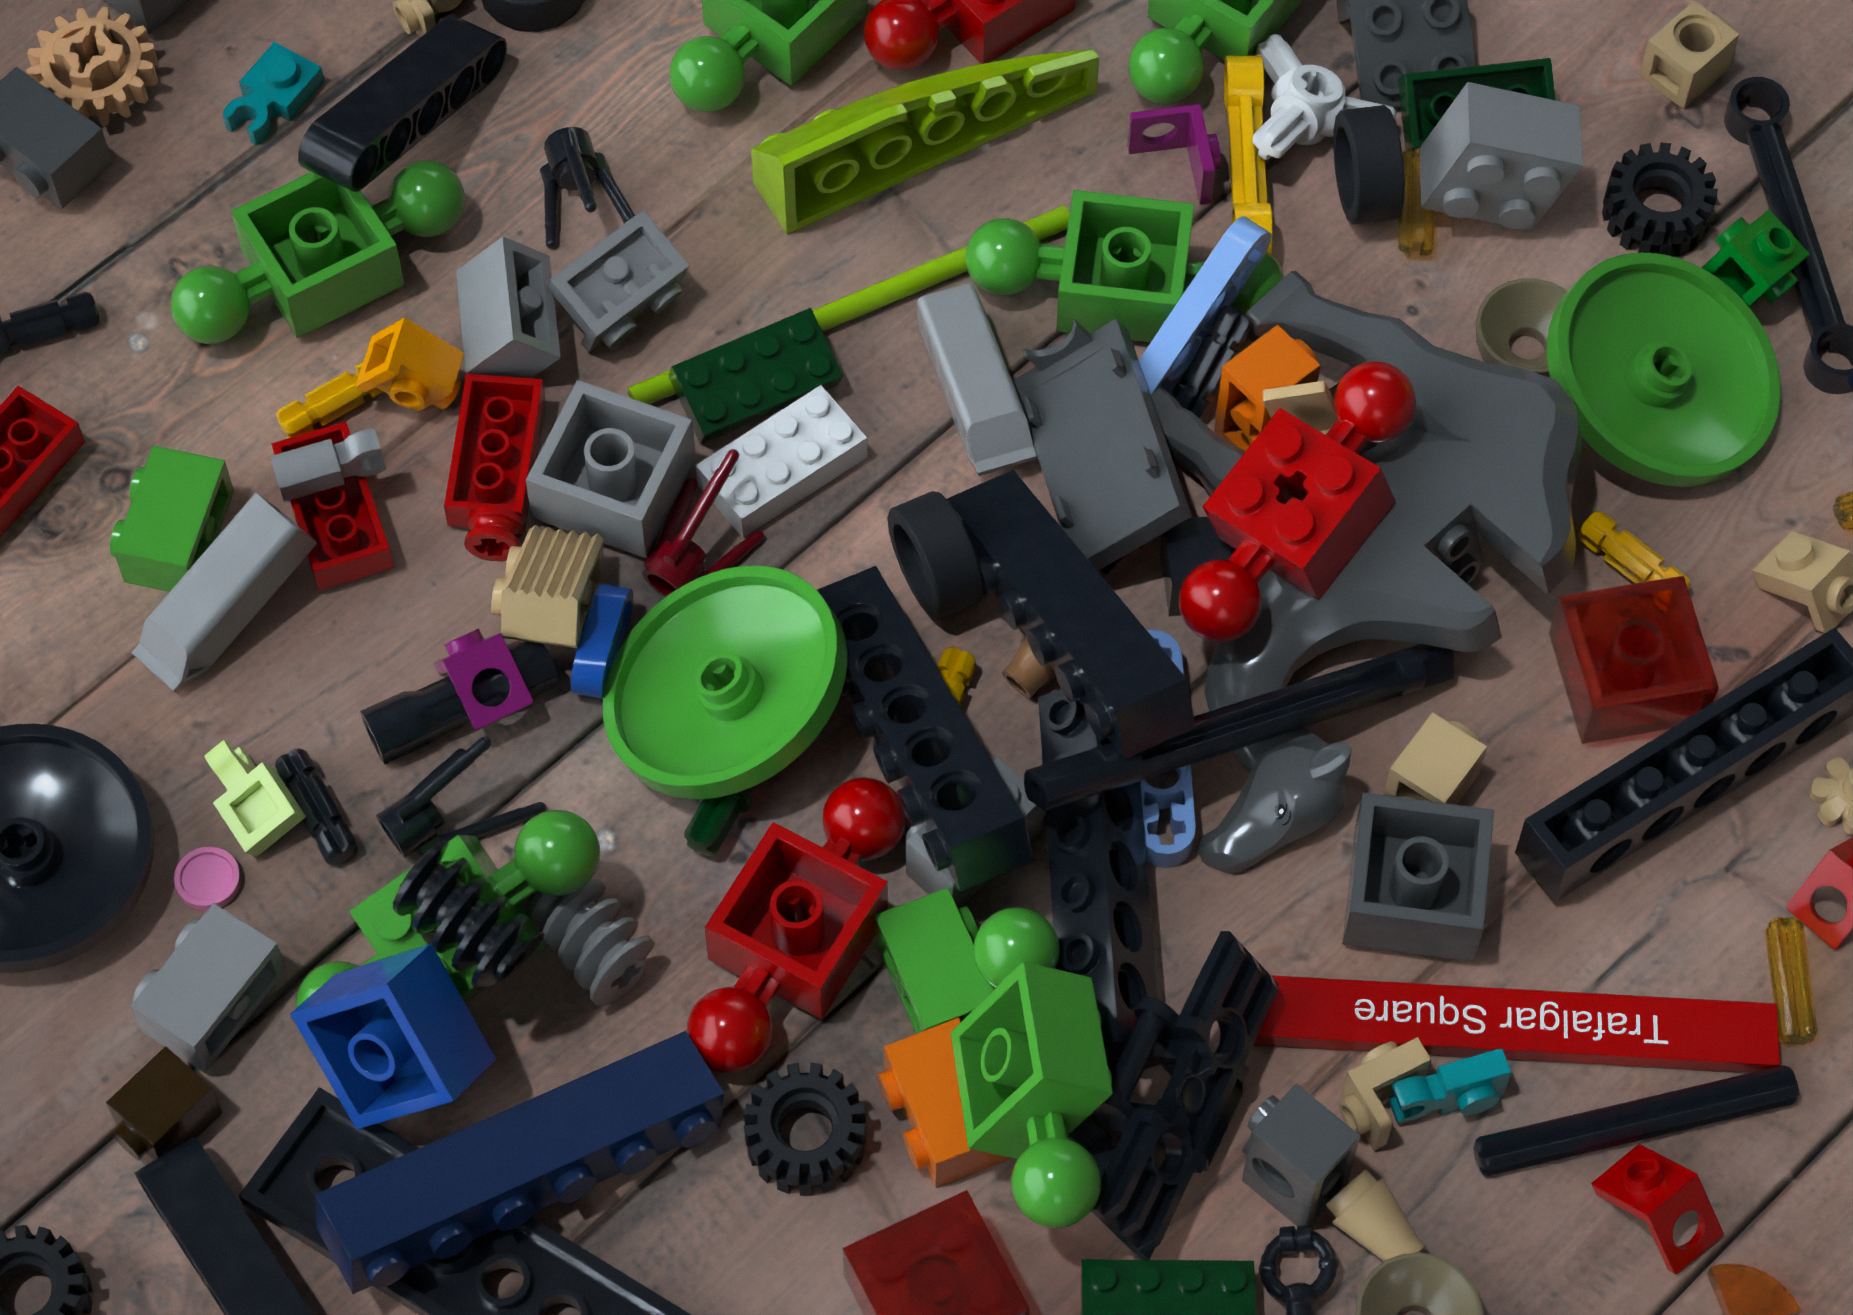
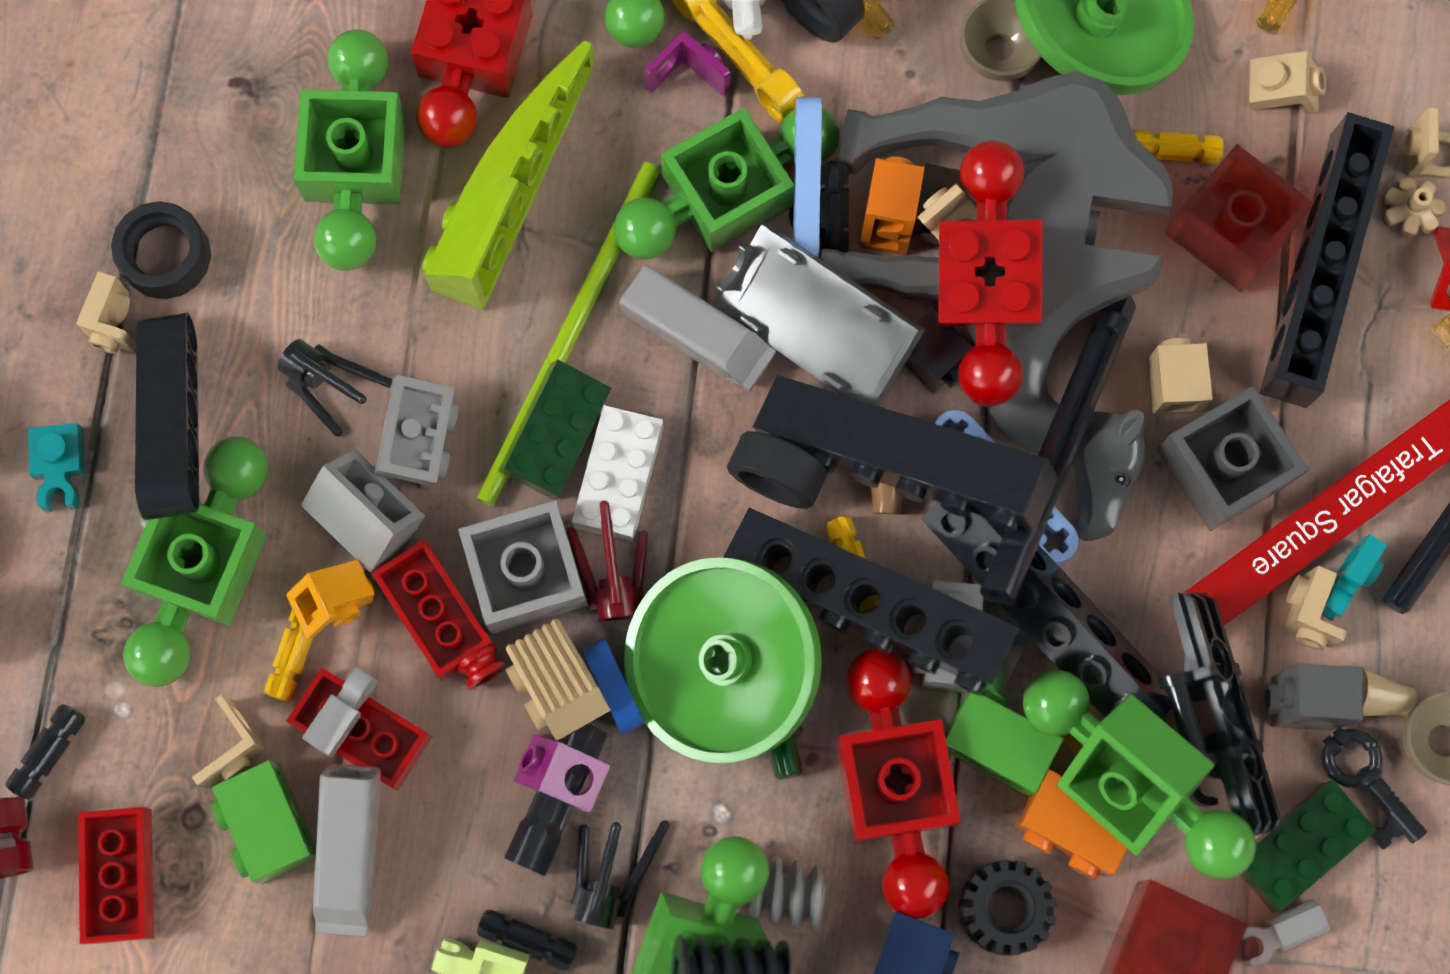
camera: 40 degrees left, 15 degrees up
(208, 441) = (238, 757): none -> tan bracket

